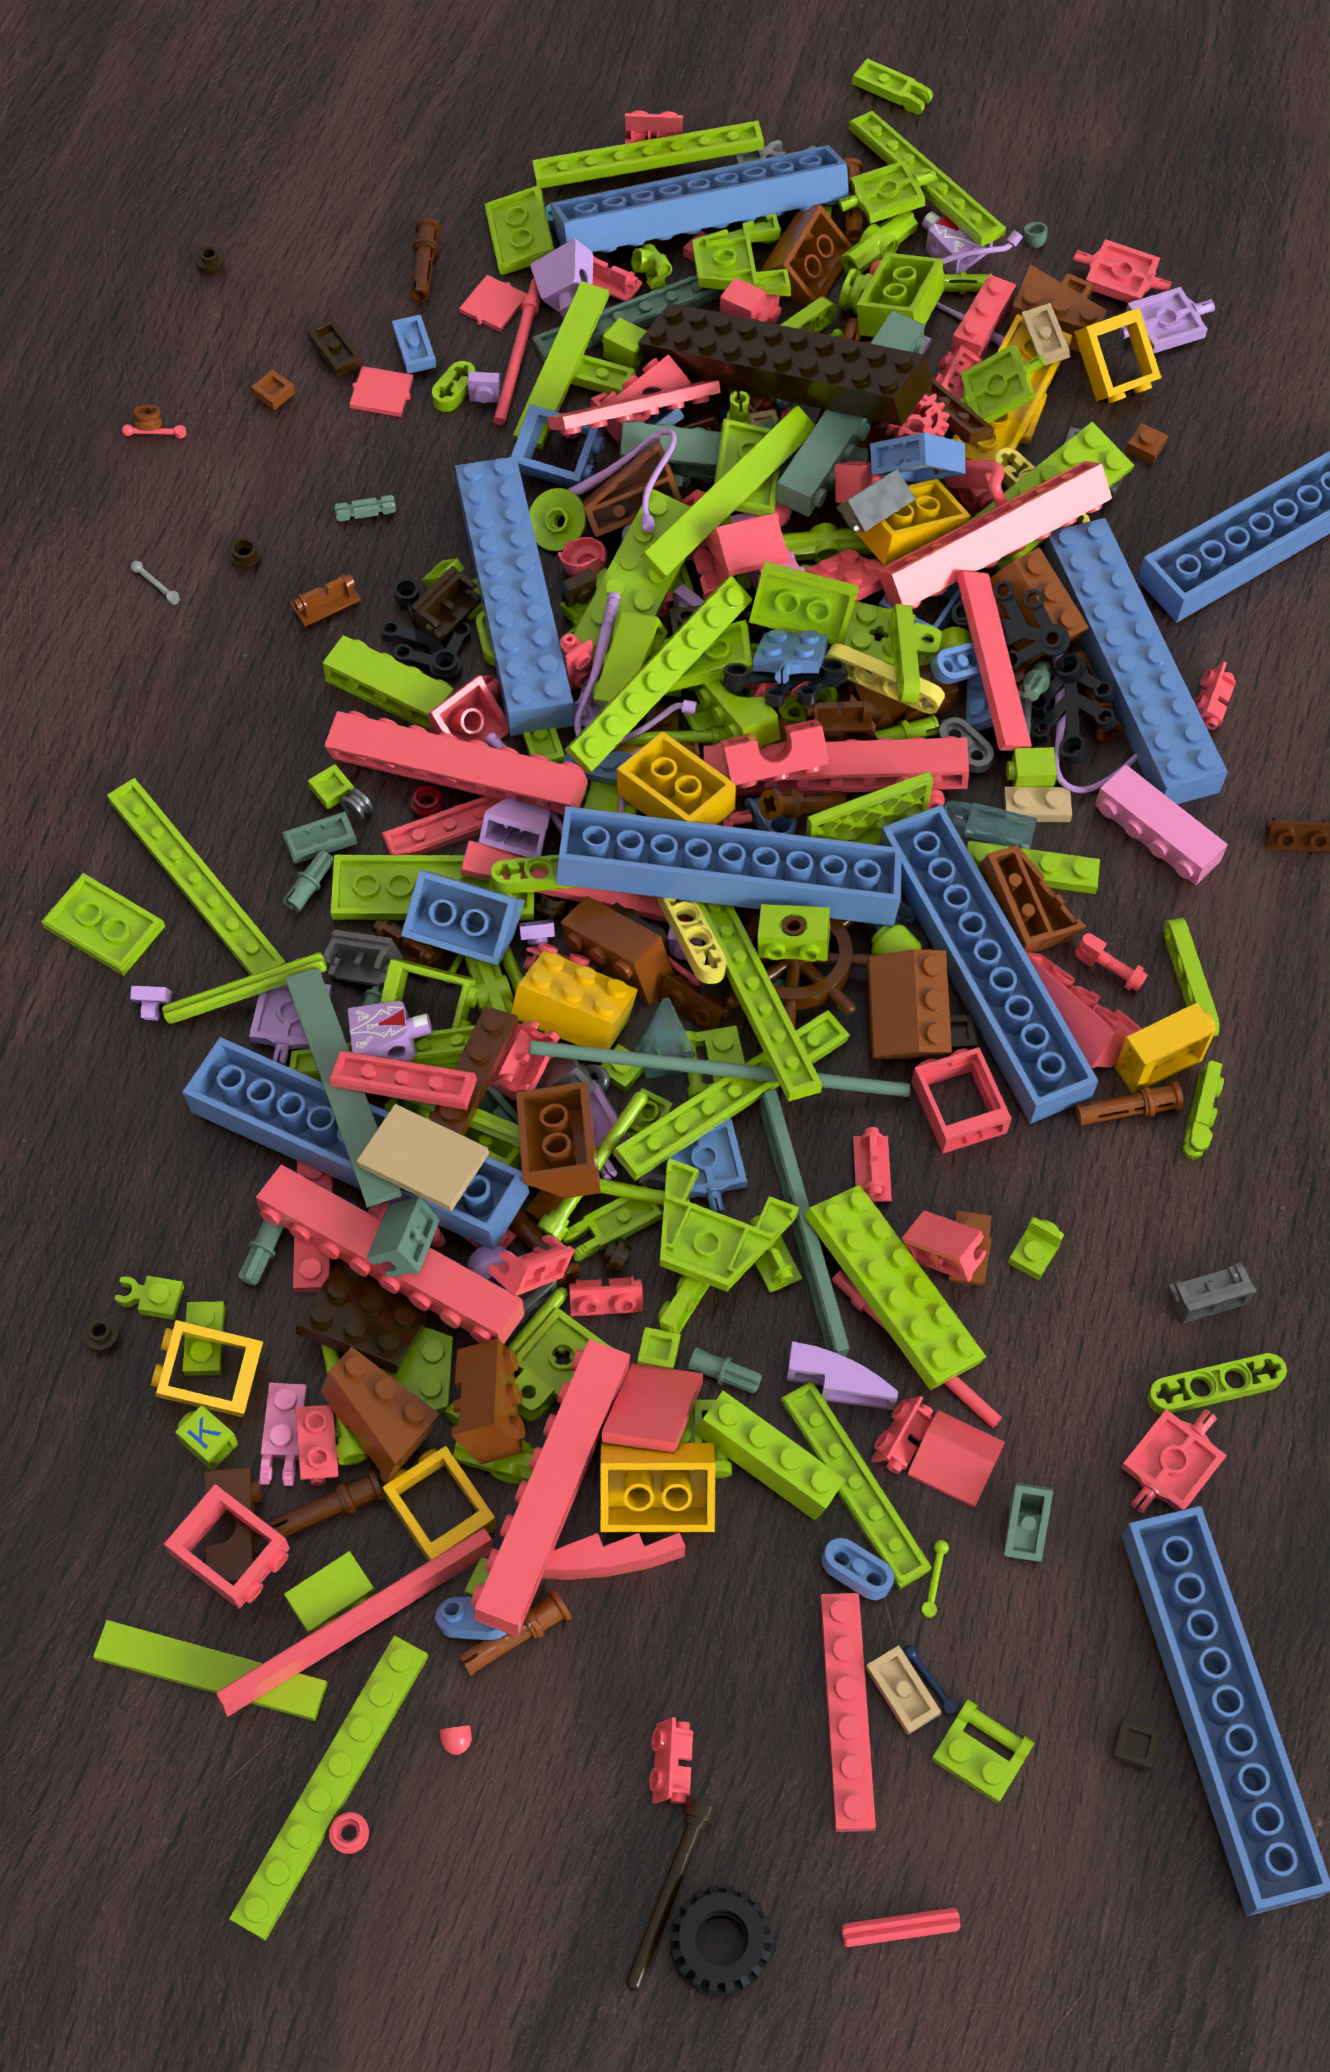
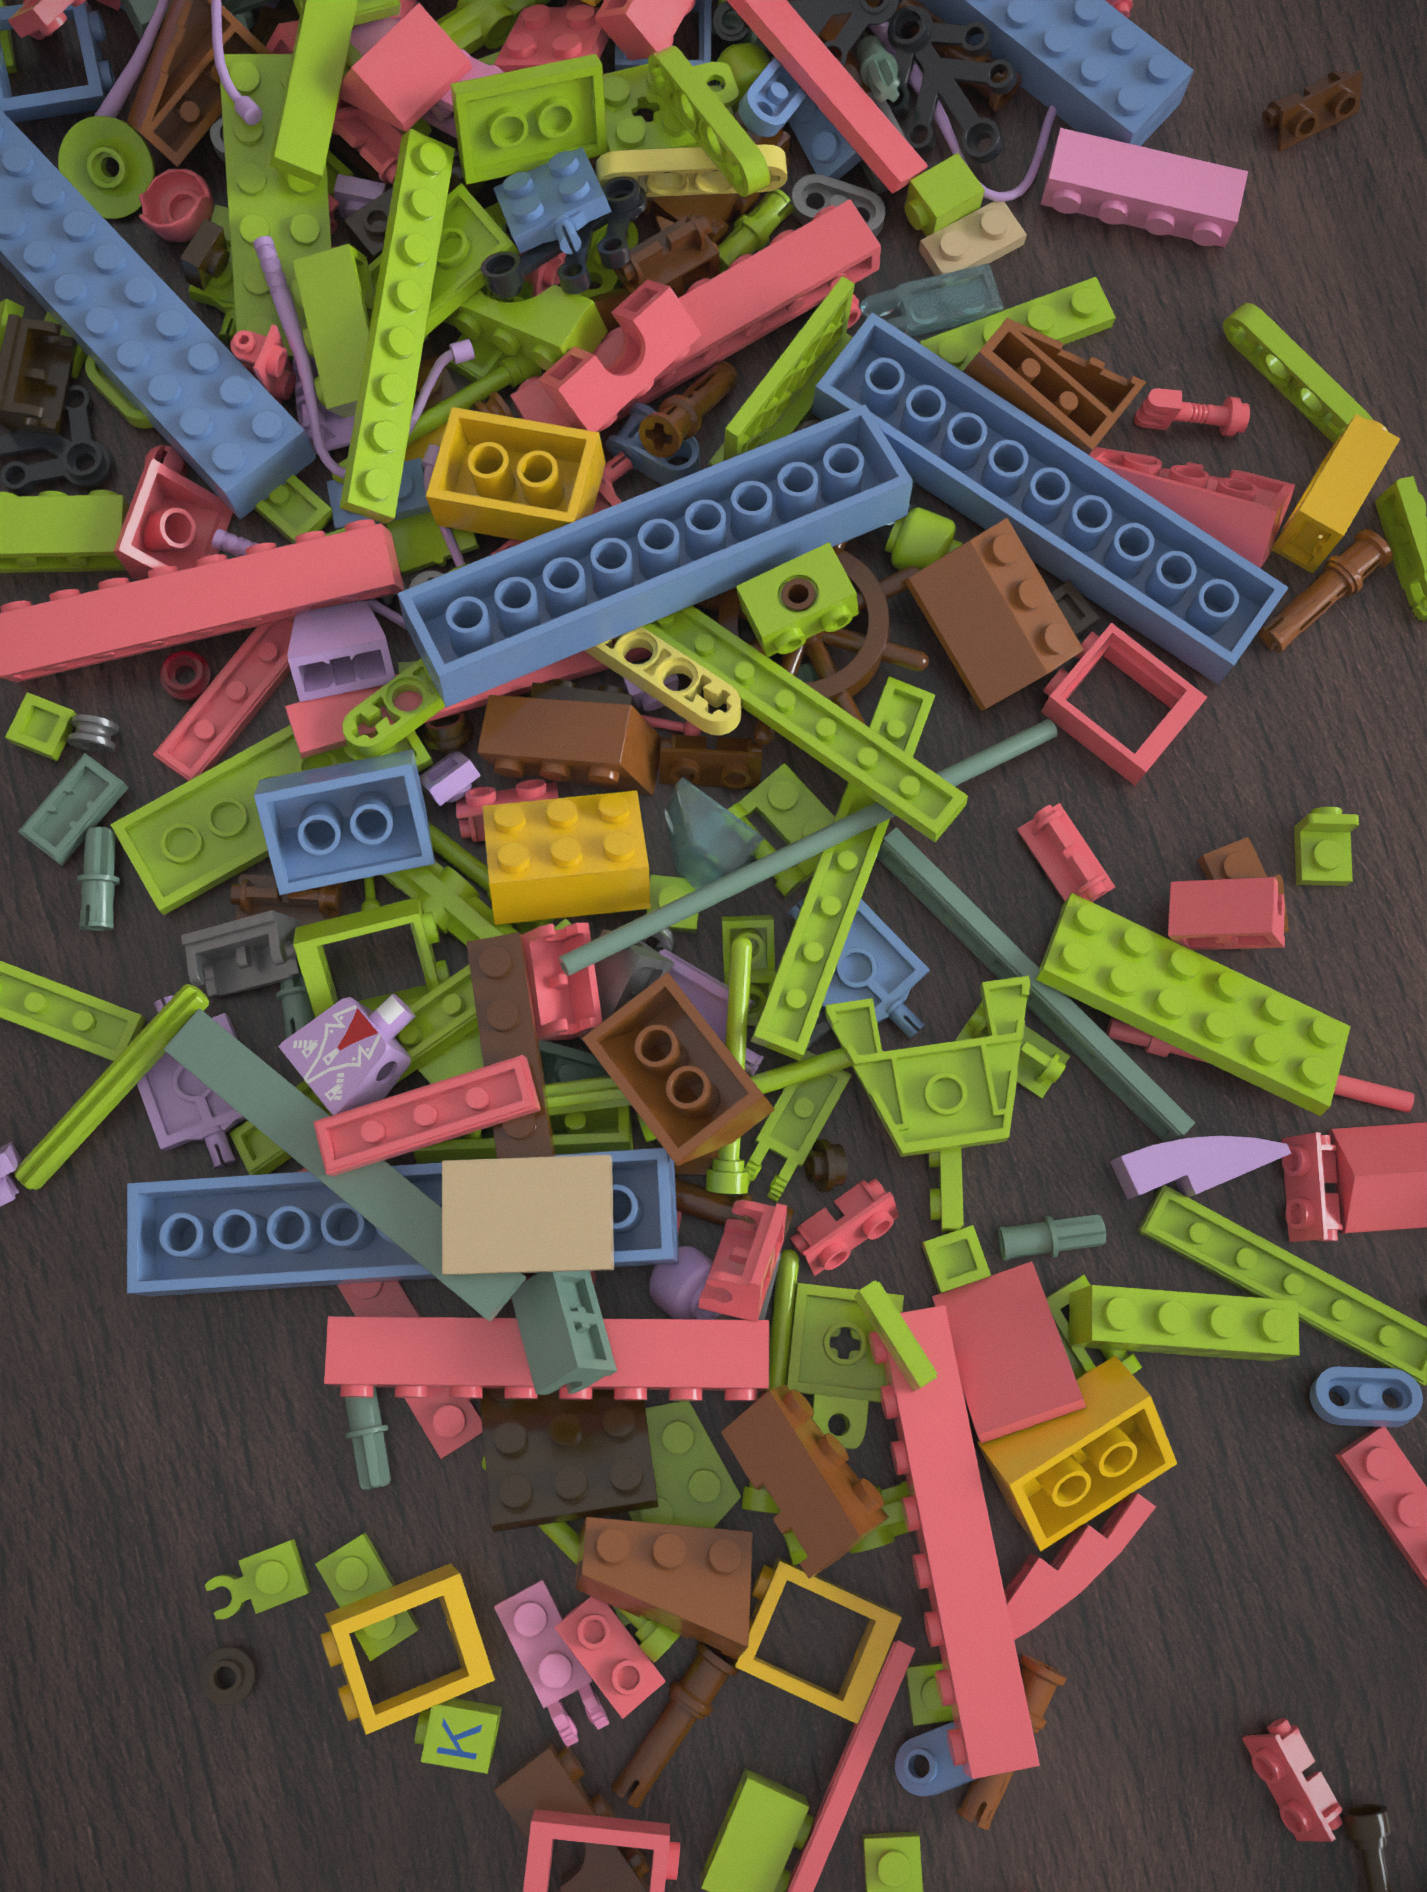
camera: 35 degrees left, 15 degrees up
(588, 1346) = (895, 1335): none -> lime tile

